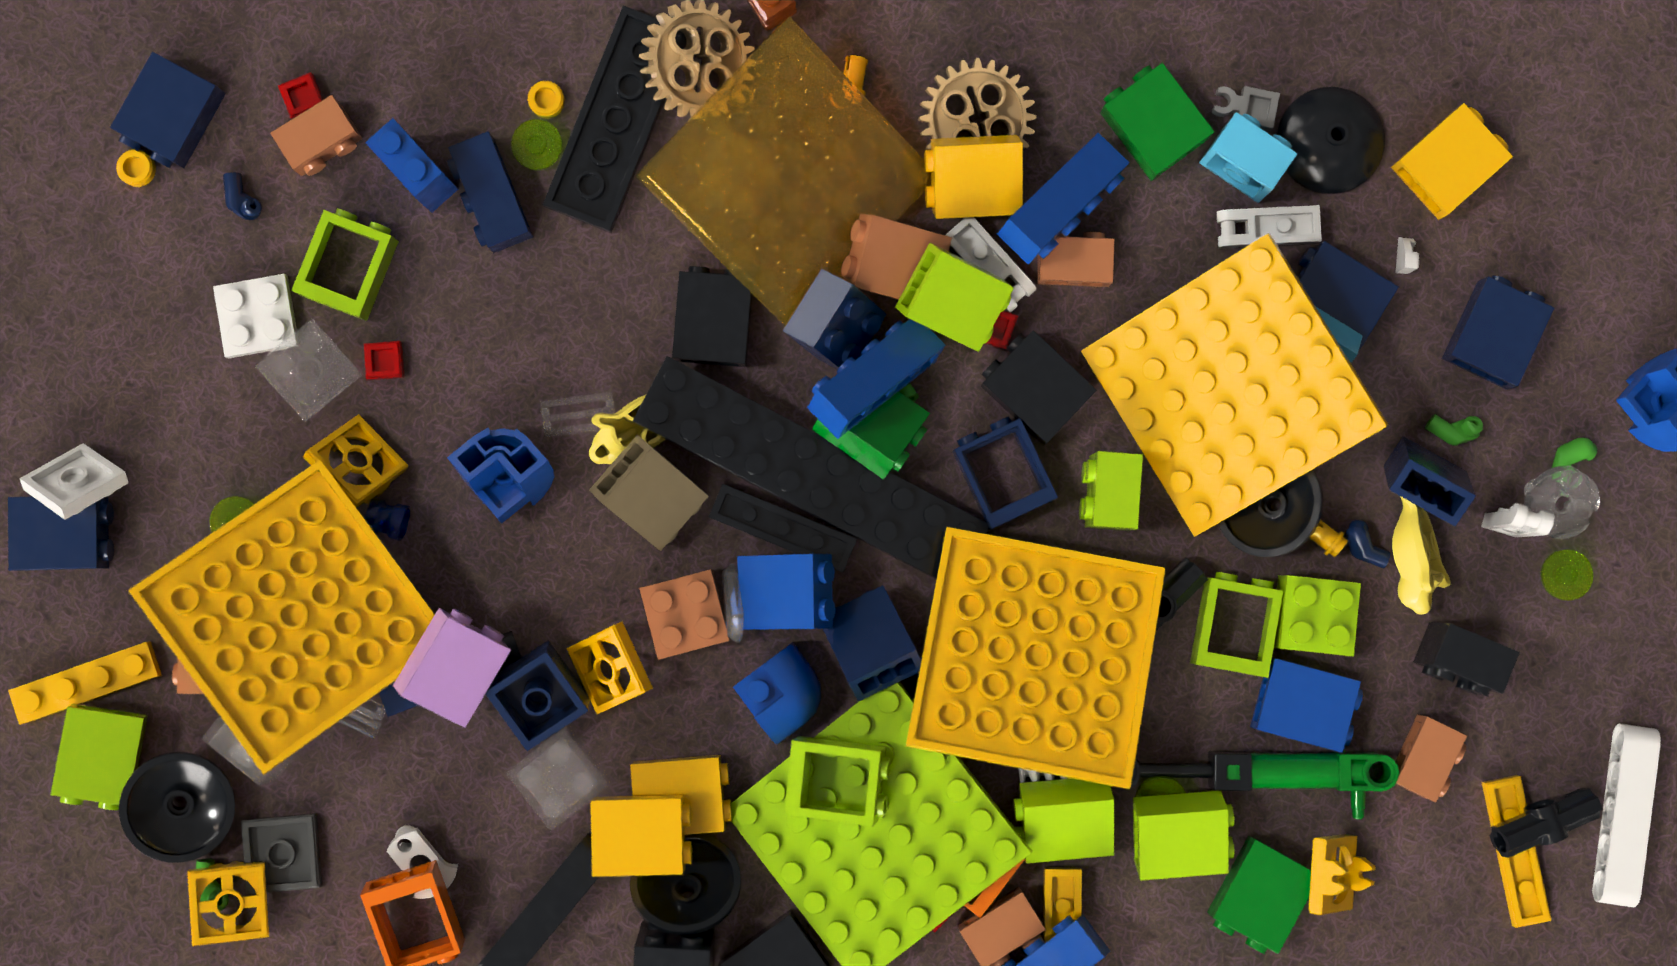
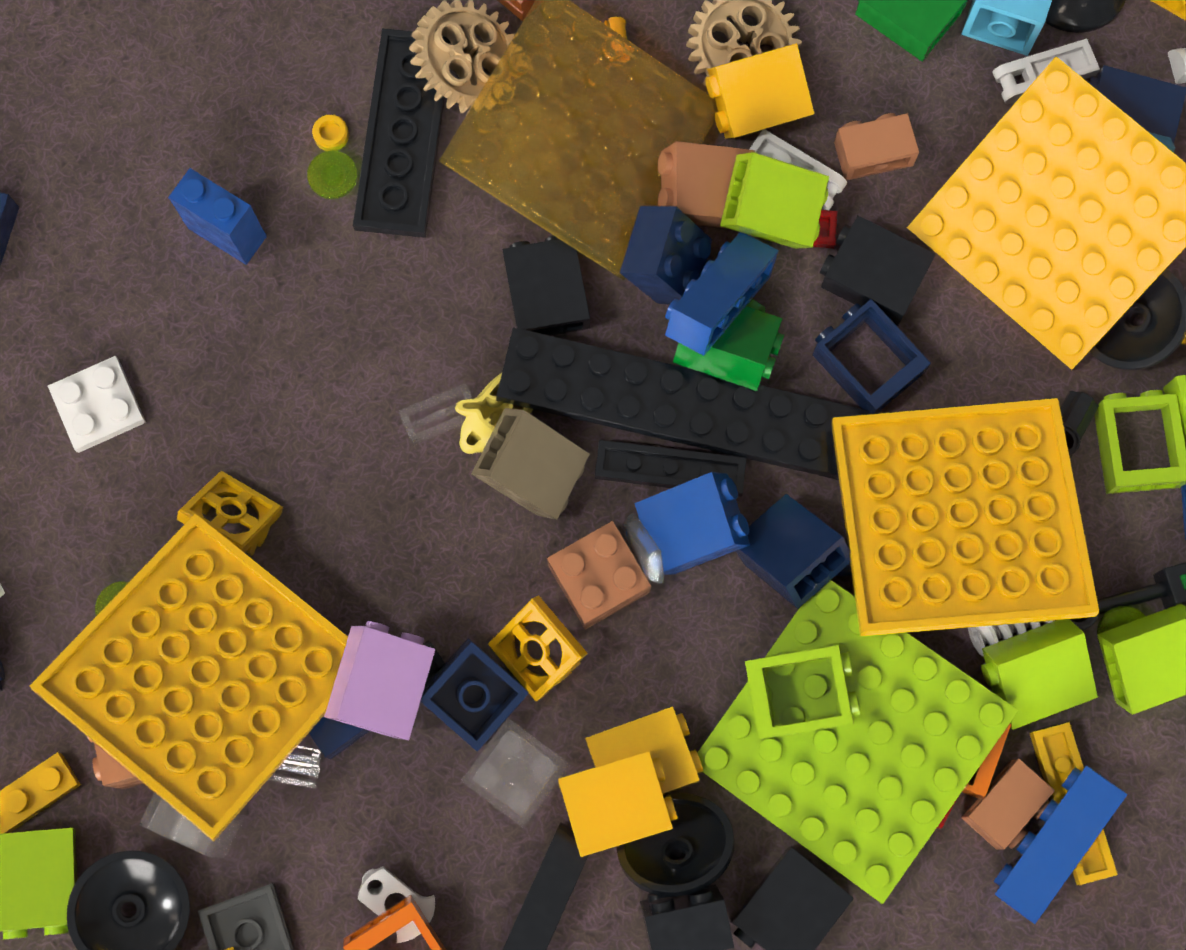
camera: 15 degrees left, 10 degrees down
(238, 201) = (53, 300): dark blue arm -> none
(300, 94) = (94, 189): red tile -> none
(308, 369) = (161, 434): clear brick -> none
(317, 136) = (118, 219): nougat brick -> none
(375, 275) = (172, 366): lime window -> none
(384, 360) = (233, 413): red tile -> none
(388, 518) = (279, 561): clear blue wheel -> none
(489, 193) = (298, 228): dark blue brick -> none
(503, 470) = (380, 482): blue brick -> none
(782, 693) = (716, 628): blue brick -> none
(1063, 198) = (848, 89): blue brick -> none
(1112, 491) = (981, 343): lime brick -> none

